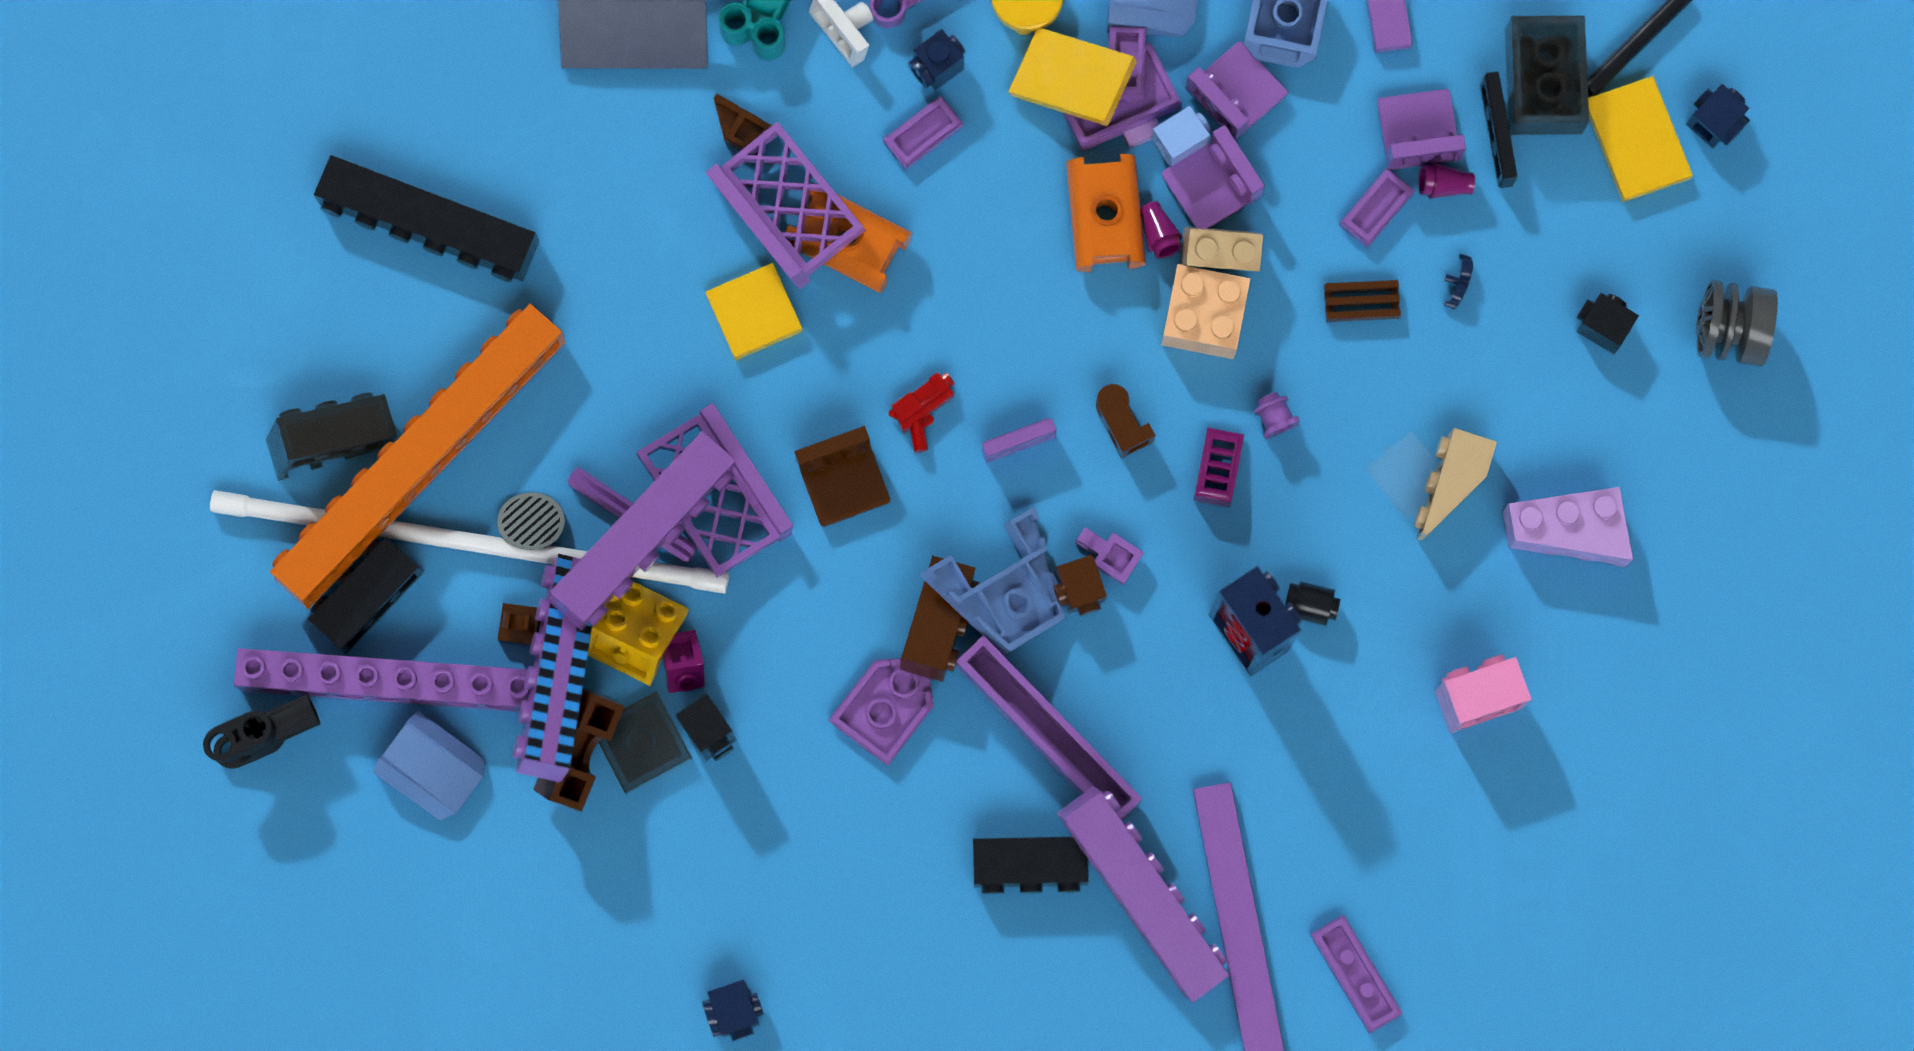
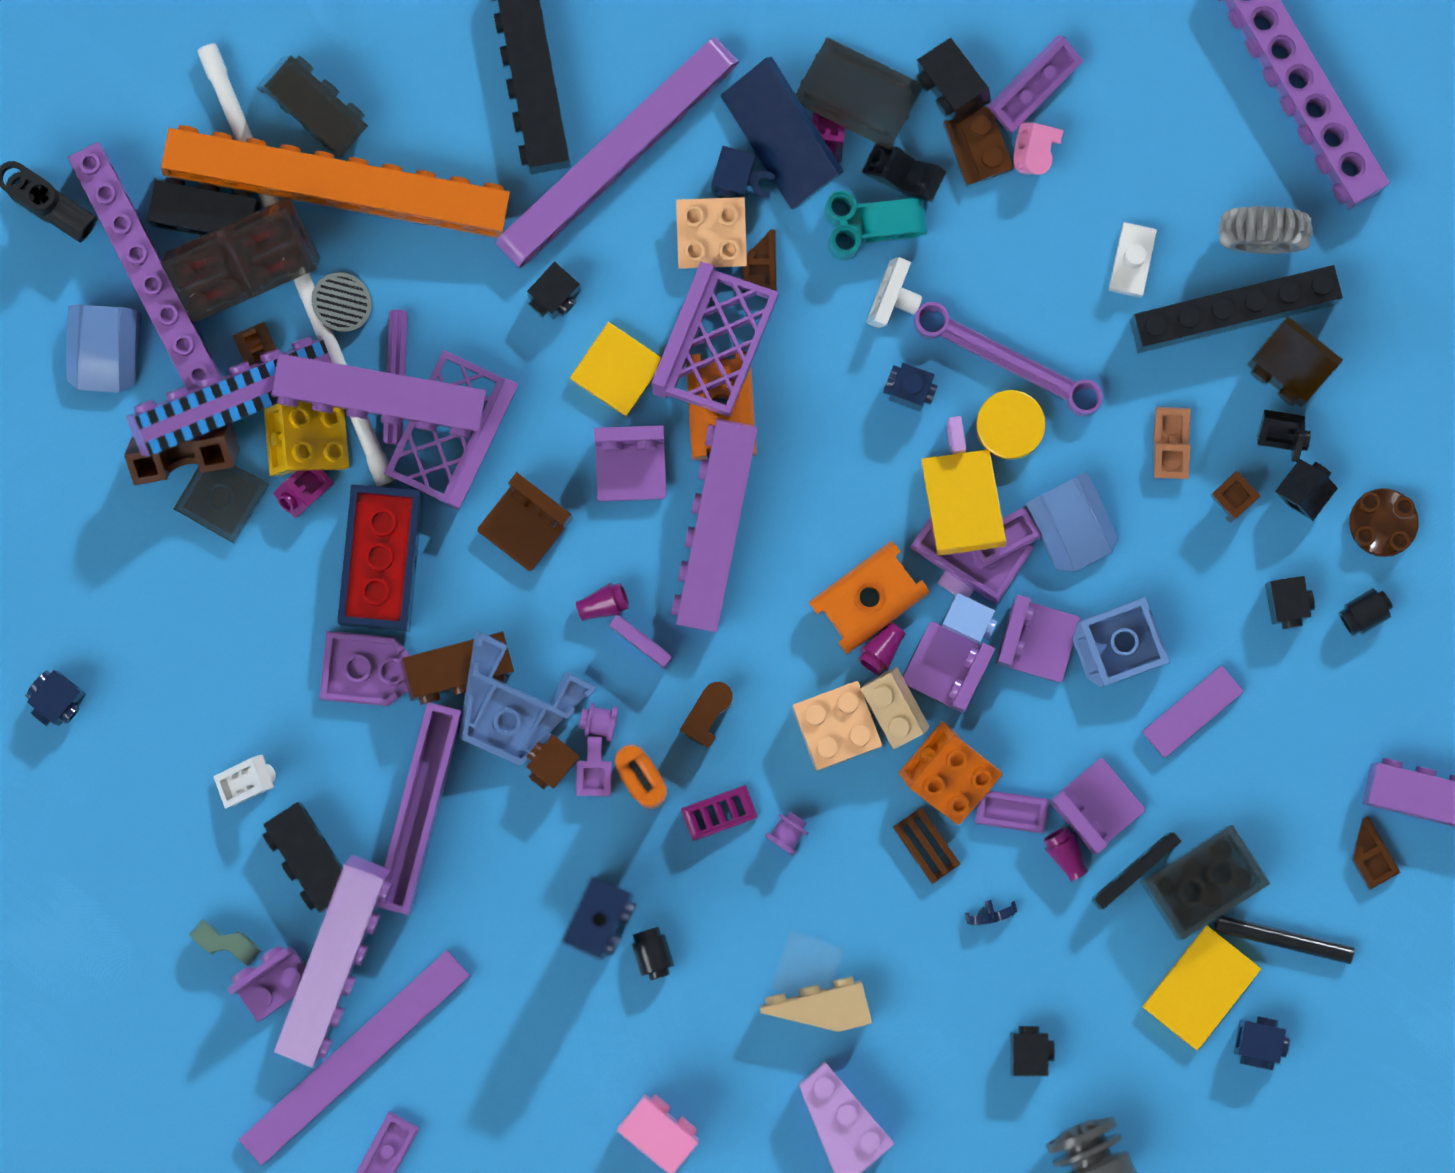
camera: 55 degrees right, 5 degrees up
(435, 583) = (241, 260): none -> clear smoke brick
(555, 190) = (617, 152): none -> medium lavender beam
(644, 95) = (736, 173): none -> dark blue brick
(647, 323) = (553, 292): none -> black brick
(683, 149) = (711, 232): none -> light nougat hinge
(707, 728) = (257, 541): black brick -> none
(793, 626) = (380, 558): none -> red brick
(847, 350) = (630, 463): none -> medium lavender bracket
(915, 408) = (617, 545): red piece -> none
(922, 878) = (245, 781): none -> white tile
(923, 132) = (846, 412): medium lavender tile -> none
(956, 304) = (716, 524): none -> medium lavender brick
(961, 452) = (605, 602): none -> magenta cone
(1006, 48) = (955, 435): none -> lavender tile
(1068, 979) = (237, 943): none -> sand green piece
(1069, 521) = (599, 721): none -> medium lavender brick
(1127, 969) = (270, 983): none -> medium lavender bracket
(1147, 508) = (641, 777): none -> orange piece
(1310, 238) = (949, 774): none -> orange bracket

